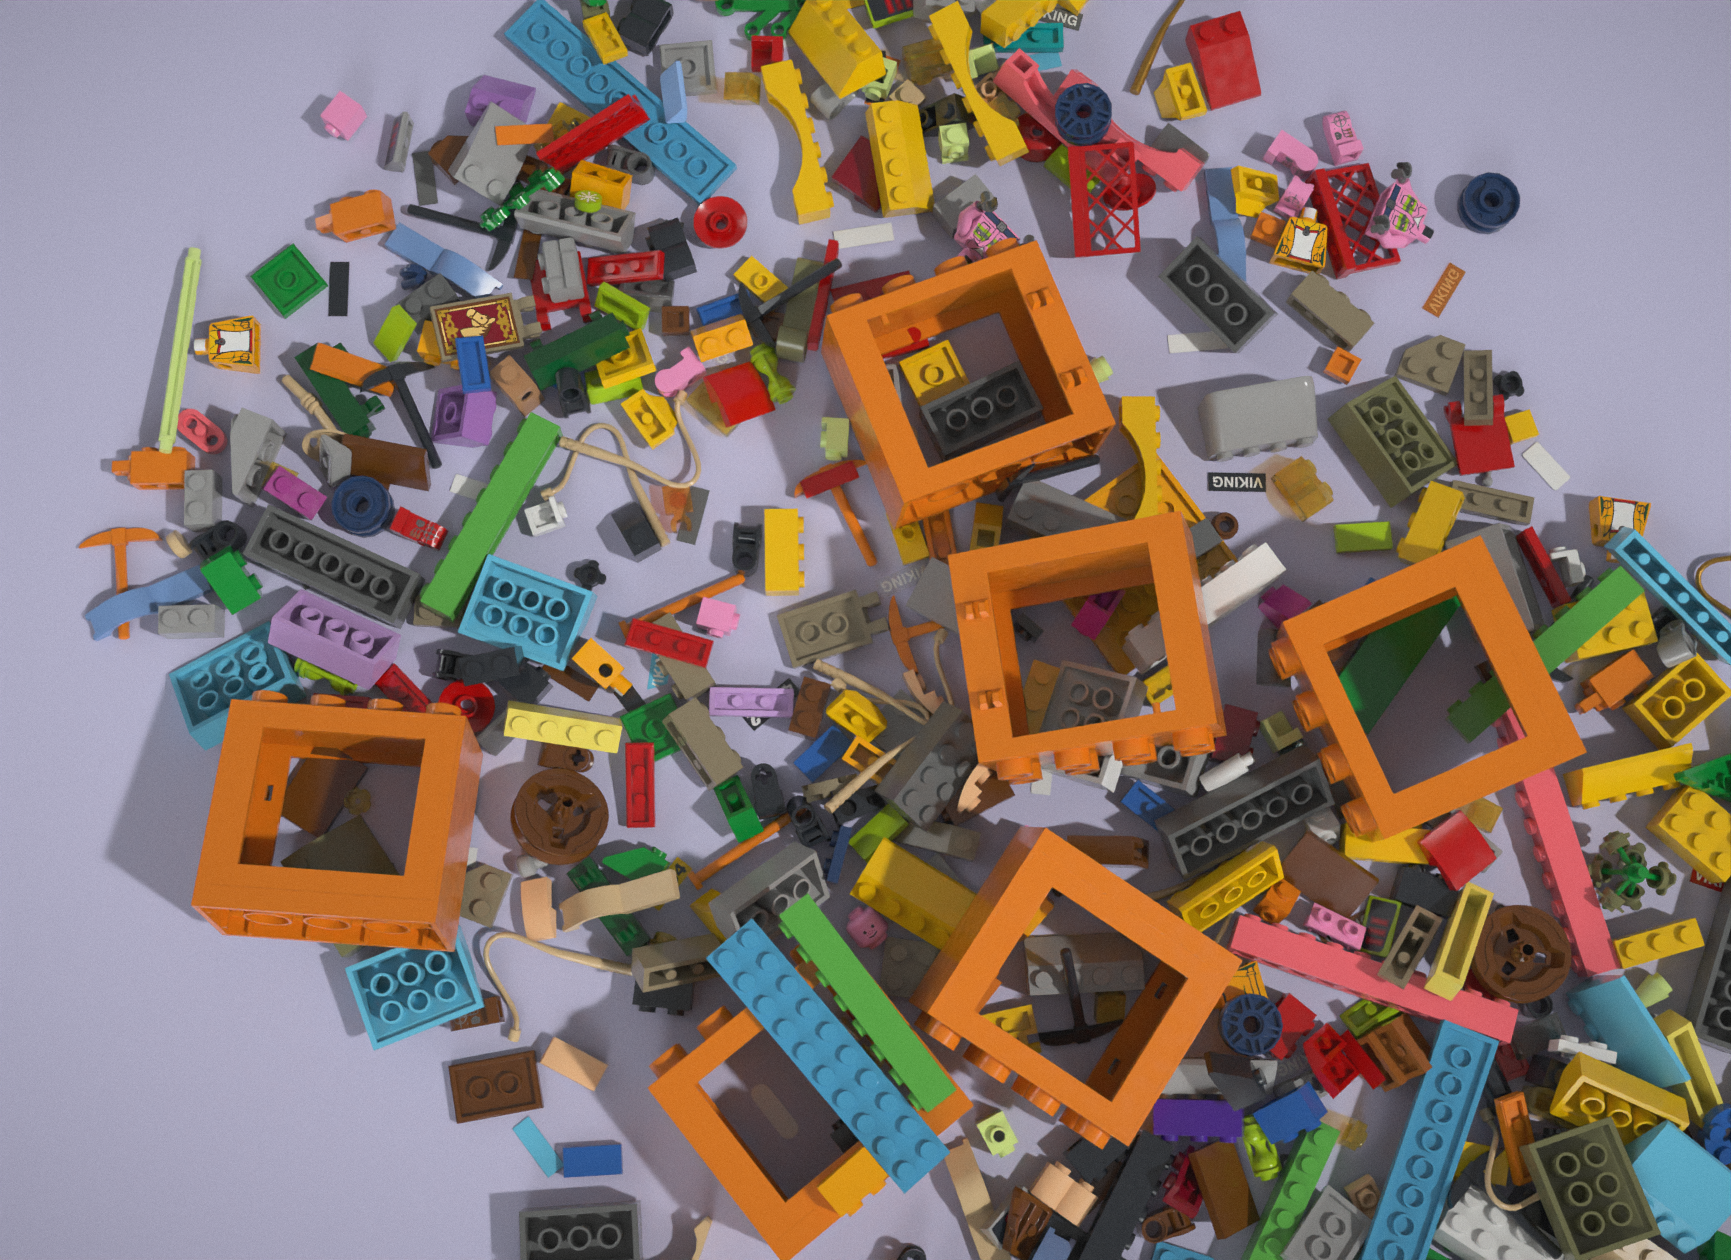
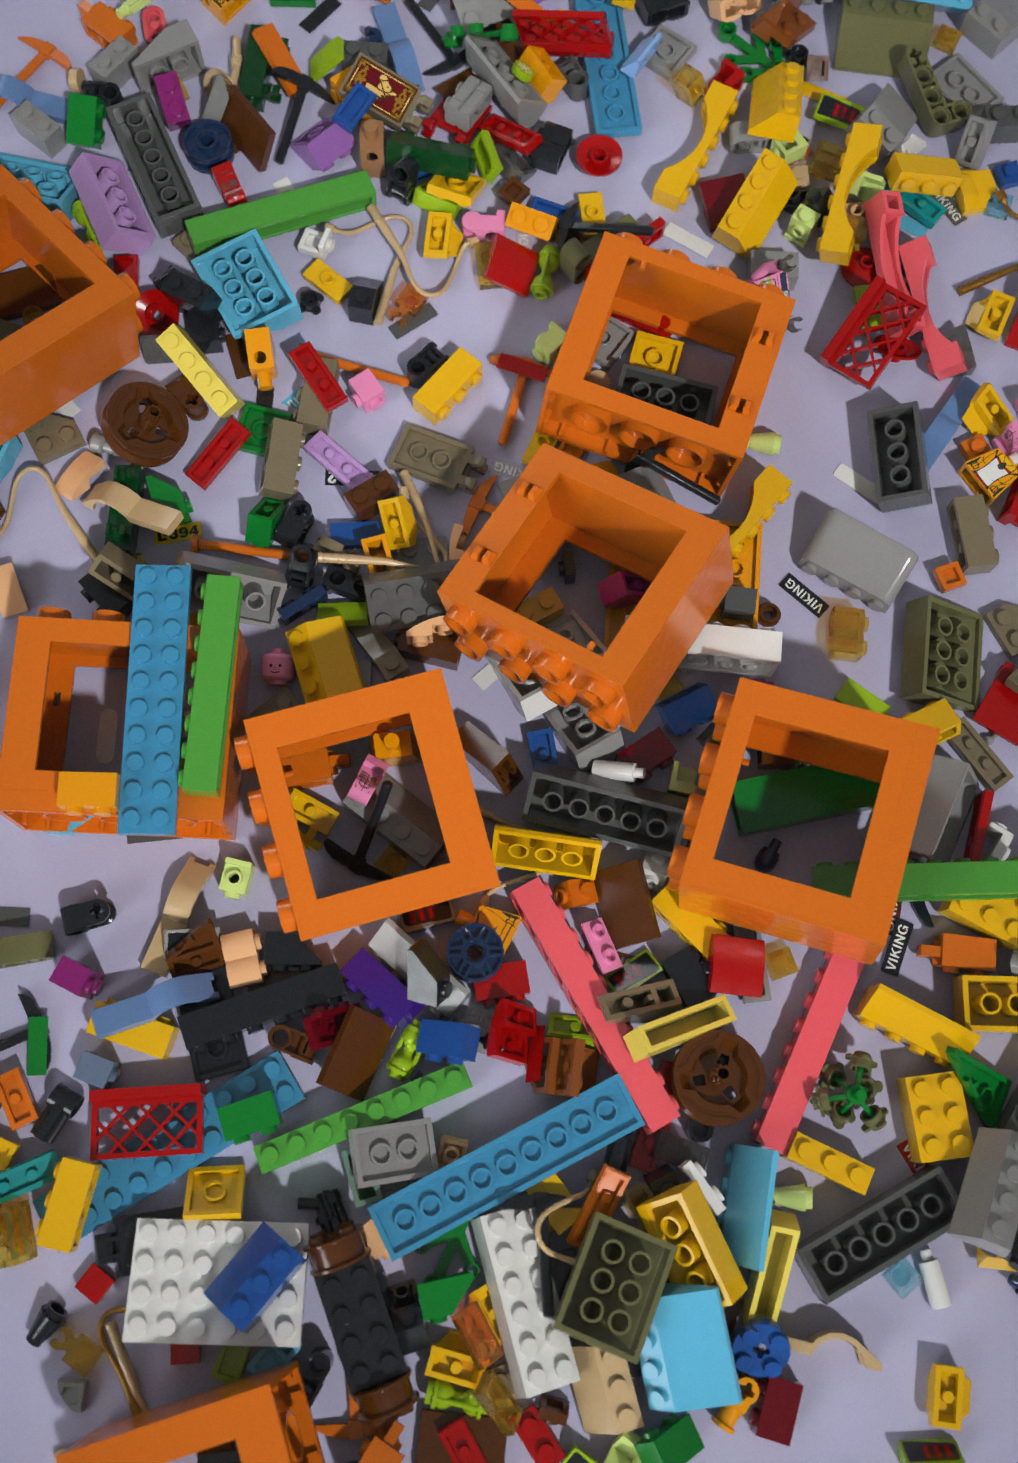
camera: 40 degrees right, 5 degrees down
(587, 543) = (327, 281): none -> yellow plate
(1038, 961) = (367, 780): none -> bright pink leg
(1083, 130) = (912, 254): dark blue wheel -> none
(1235, 664) = (687, 709): none -> blue brick
(1354, 1134) = (482, 1103): clear yellow plate -> none
(1399, 735) = (768, 857): none -> dark blue cylinder

